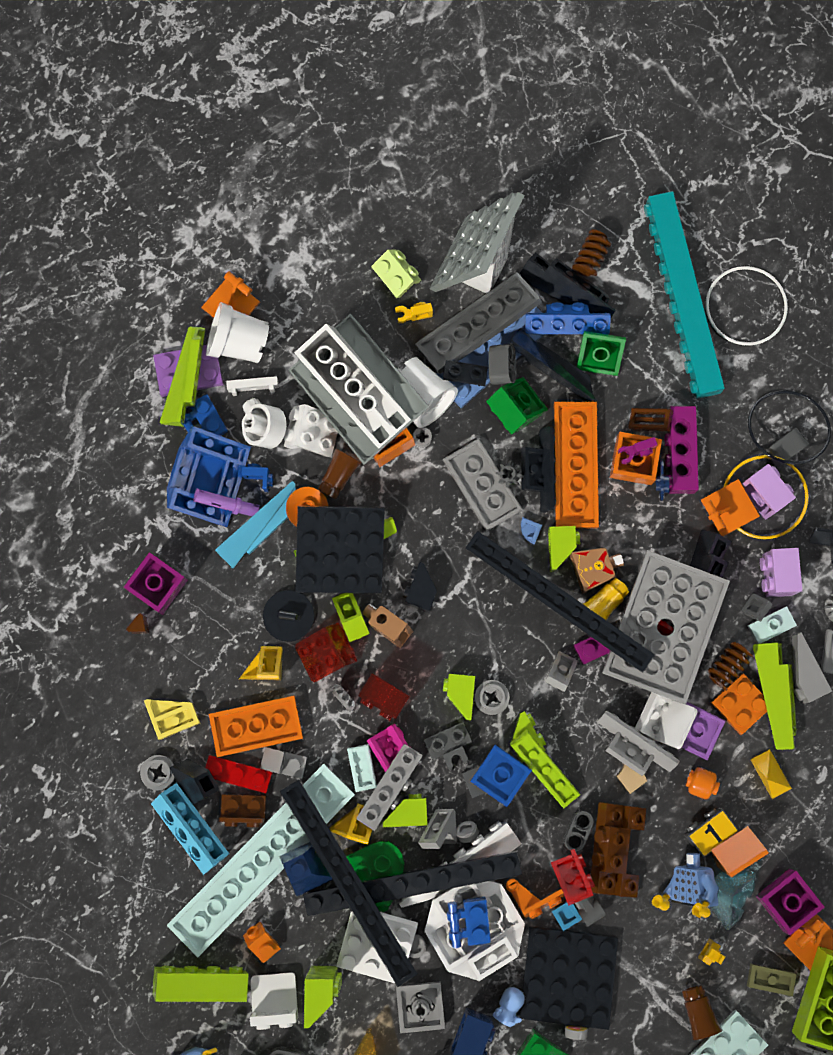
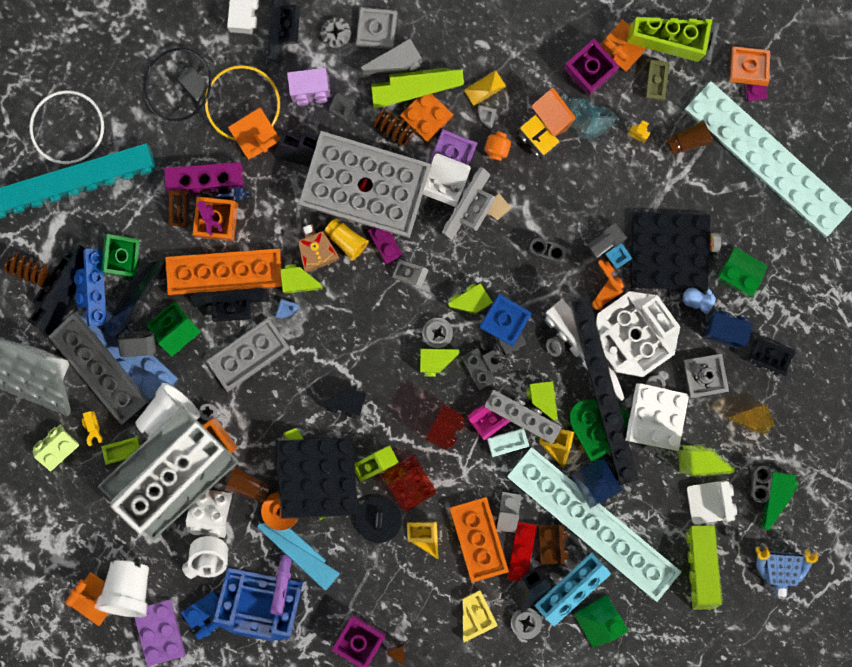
camera: 85 degrees left, 5 degrees up
(150, 858) = (601, 622): none -> green slope
(185, 379) = (168, 633): lime wedge -> none
(252, 384) = (169, 574): white piece -> none
(255, 471) = (250, 561): blue bracket -> none
(261, 942) = (664, 518): orange bracket -> none
(345, 699) = (446, 465): light grey gear -> none
(348, 883) = (607, 446): black plate -> none
(387, 340) = (120, 450): none -> lime tile
(393, 629) = (384, 424): medium nougat torso -> none
(440, 830) = (556, 370): light grey slope -> none
(465, 373) = (147, 377): black hinge -> none
(476, 922) = (632, 332): blue plate -> none
(515, 473) = (237, 325): dark grey gear -> none
(544, 768) = (496, 282): lime tile -> none
(560, 602) = (349, 278): black plate -> none
(572, 877) = (587, 253): red bracket -> none
(612, 849) = (560, 221): reddish brown bracket -> none
(690, 886) = (586, 150): medium blue torso -> none
(738, 774) = (487, 115): none -> light grey tile
(768, 491) = (237, 100): lavender brick -> none
(772, 625) = (356, 92): light aqua plate -> none

